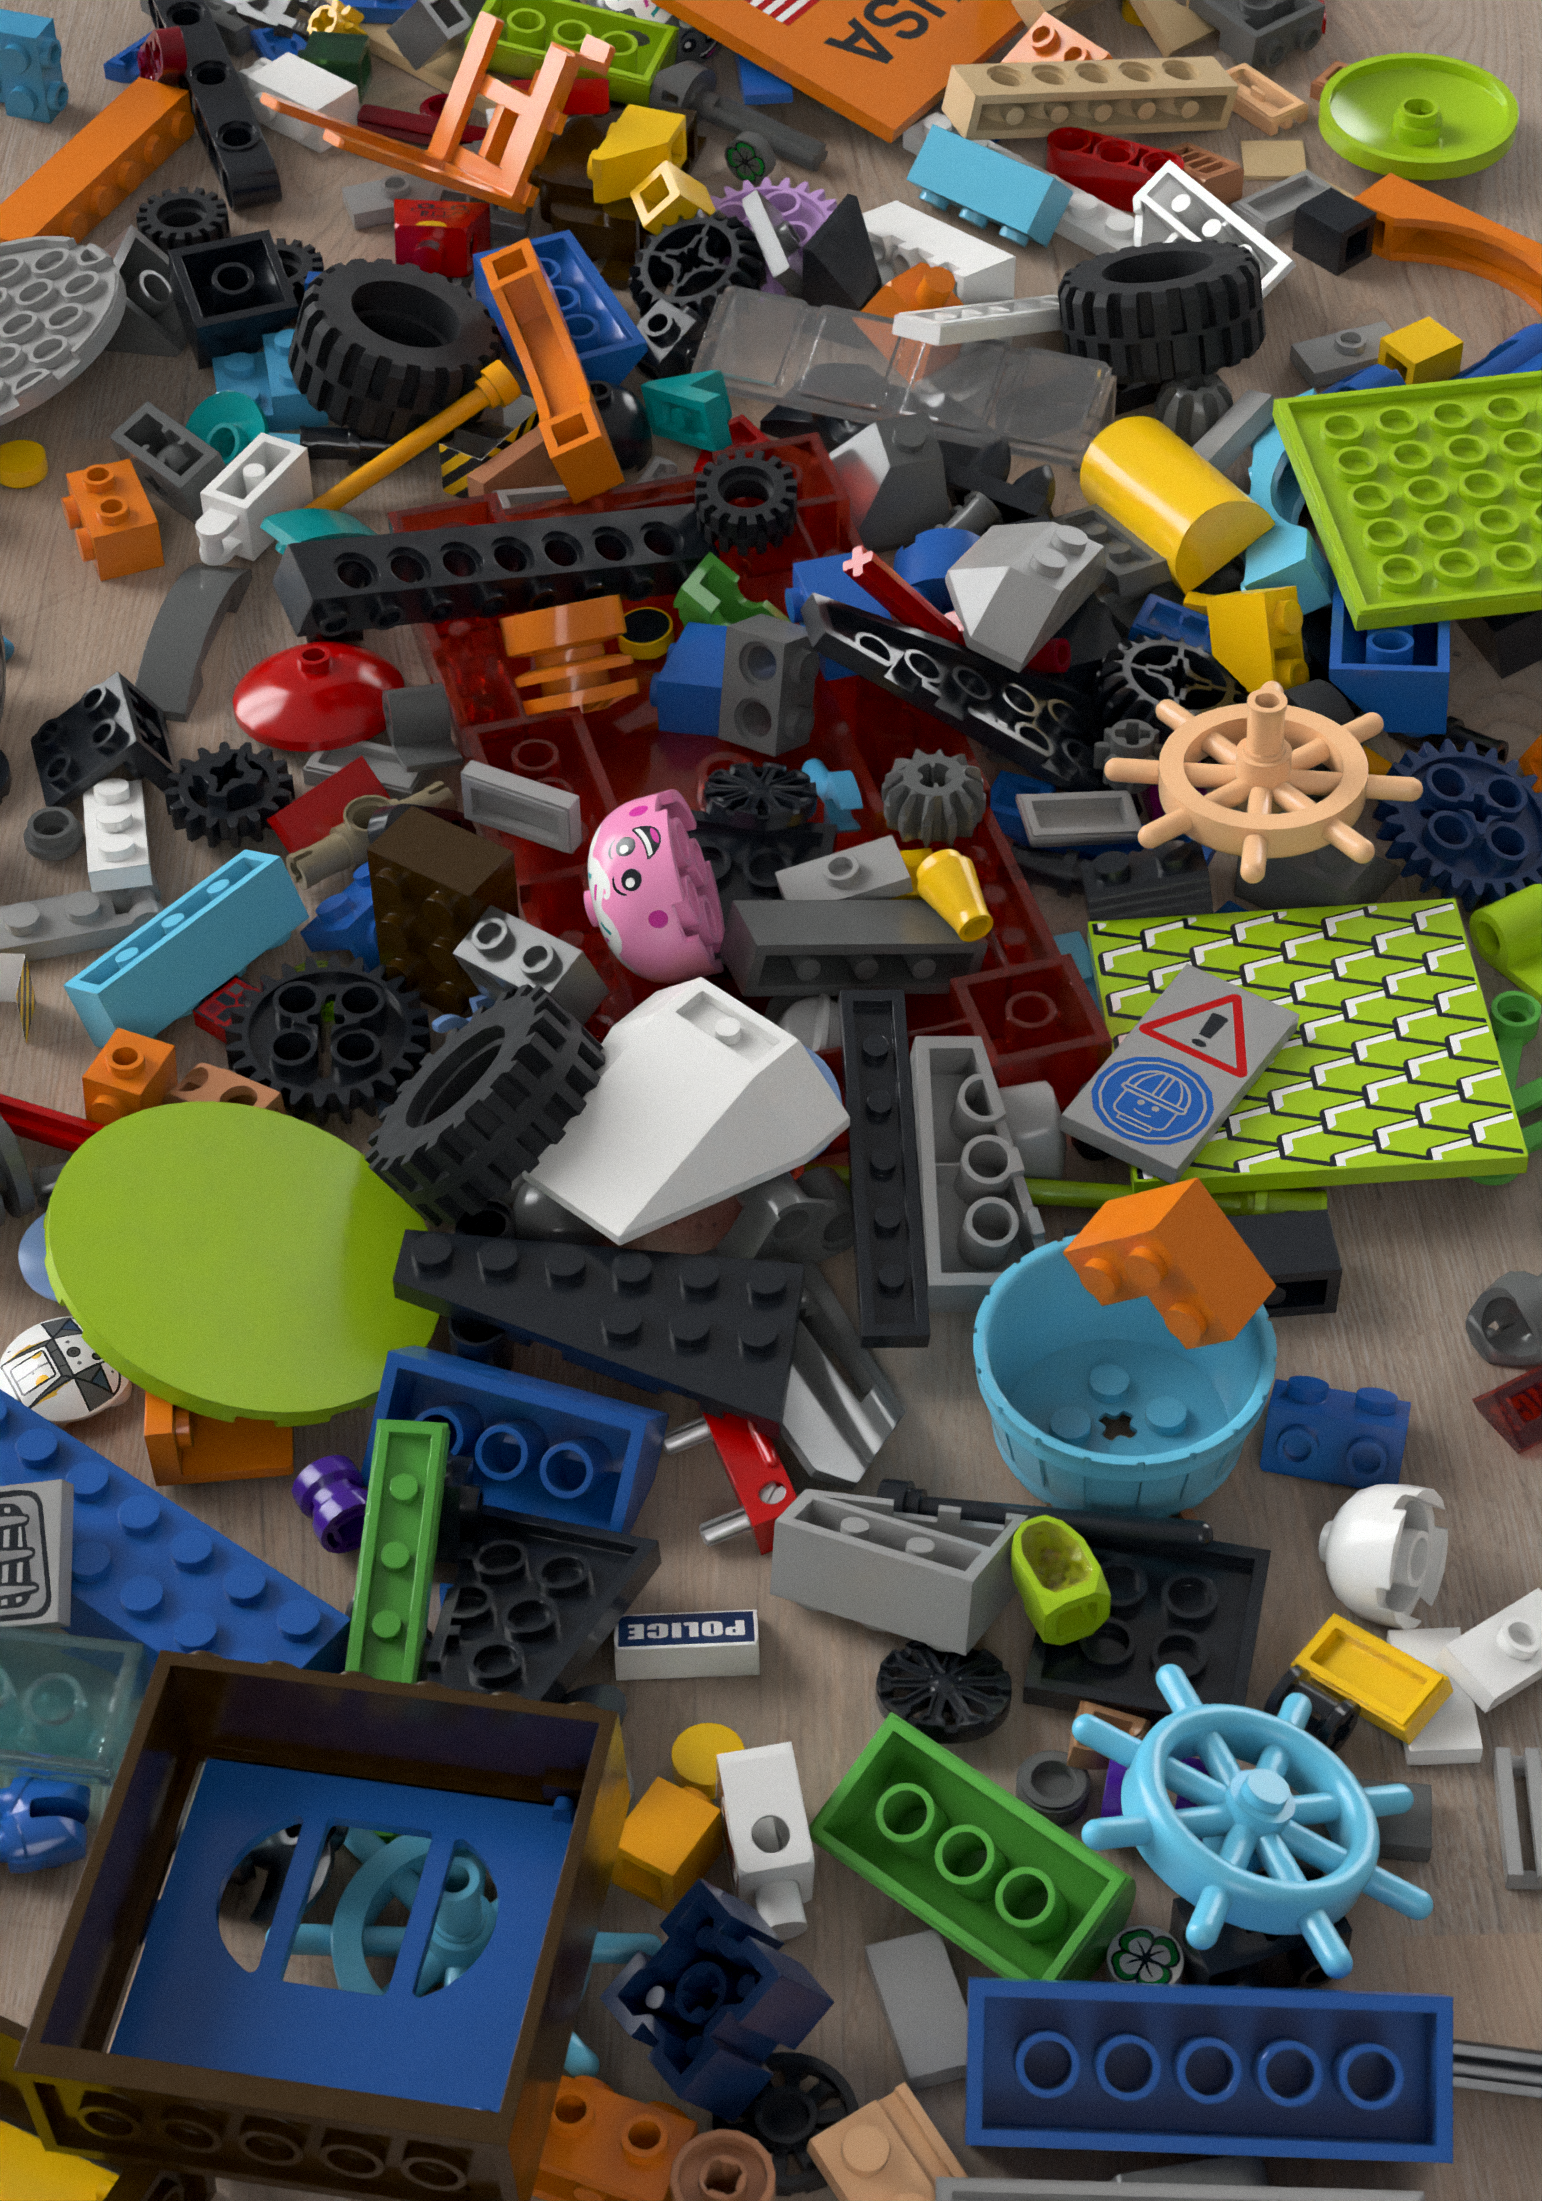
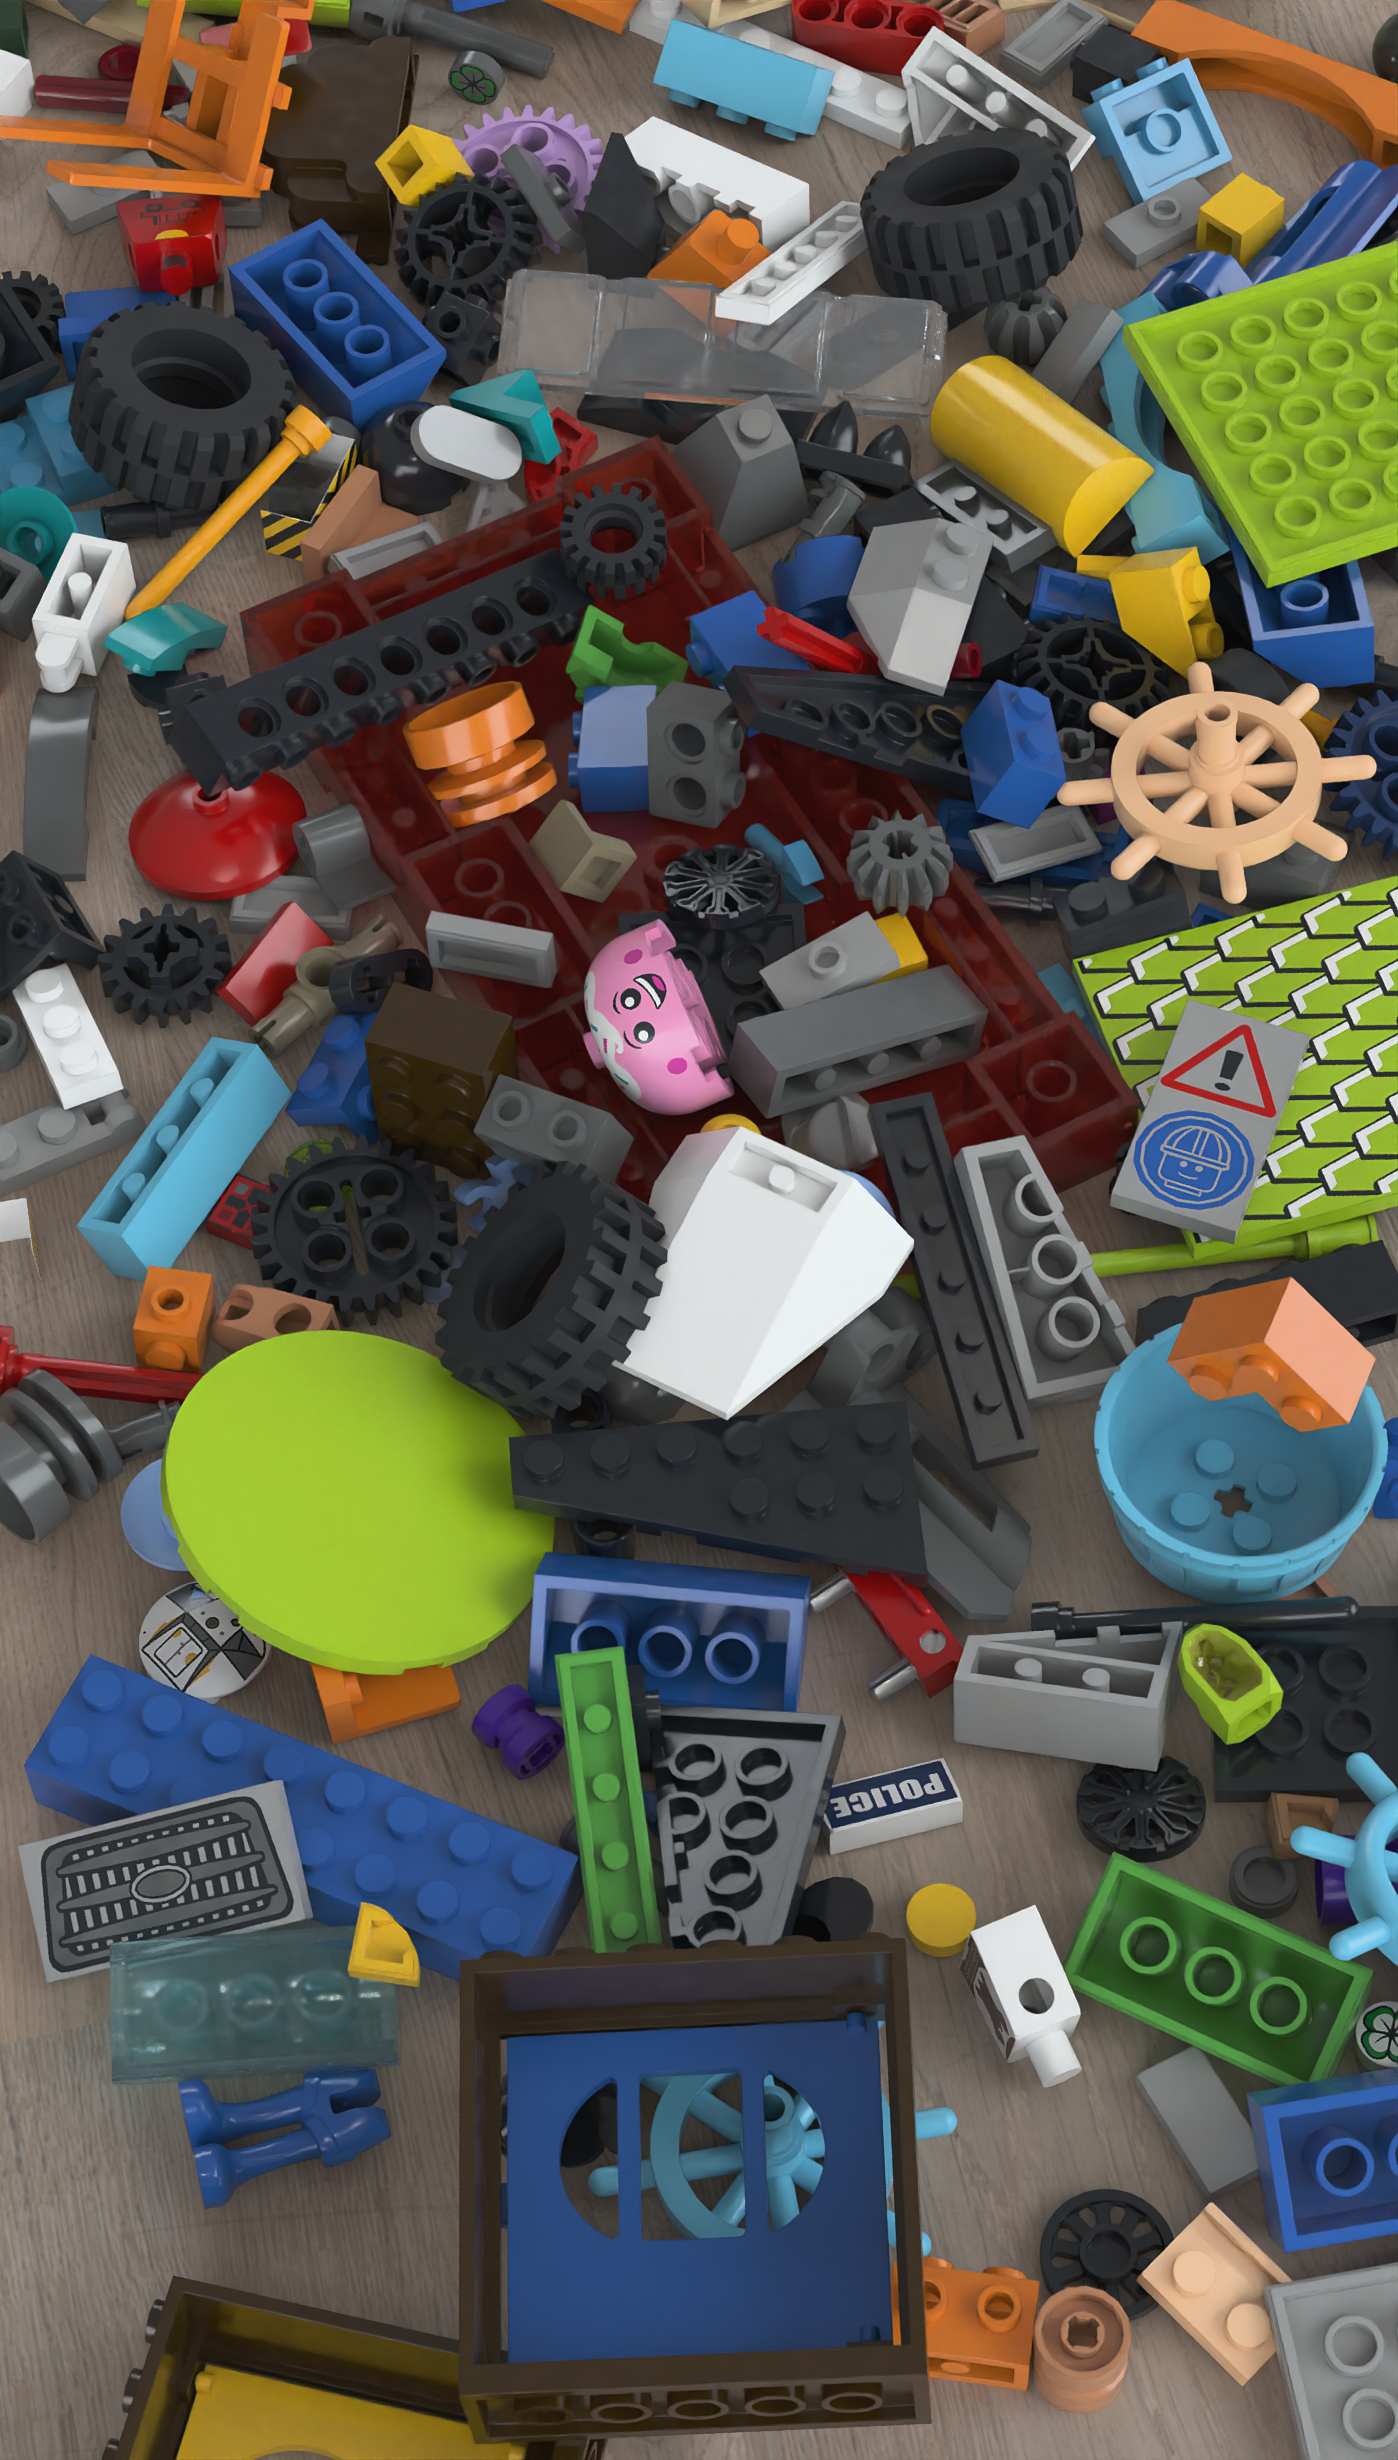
camera: 10 degrees left, 10 degrees up
(120, 1662) = (383, 1949): none -> yellow tile
(560, 388) = (366, 414): orange arch -> none
(634, 150) = (370, 111): yellow slope -> none
(636, 753) = (578, 858): none -> dark tan panel
(644, 421) = (466, 445): none -> tile
(647, 633) = (542, 691): tile -> none
(667, 1844) = (940, 2011): light orange brick -> none
(716, 2001) = (1027, 2164): dark blue brick -> none
(953, 891) = (946, 966): yellow cone -> none
(1035, 1128) = (1084, 1201): light grey hair -> none
(1073, 730) = (1013, 754): none -> blue piece
(1359, 273) = (1156, 128): none -> plate

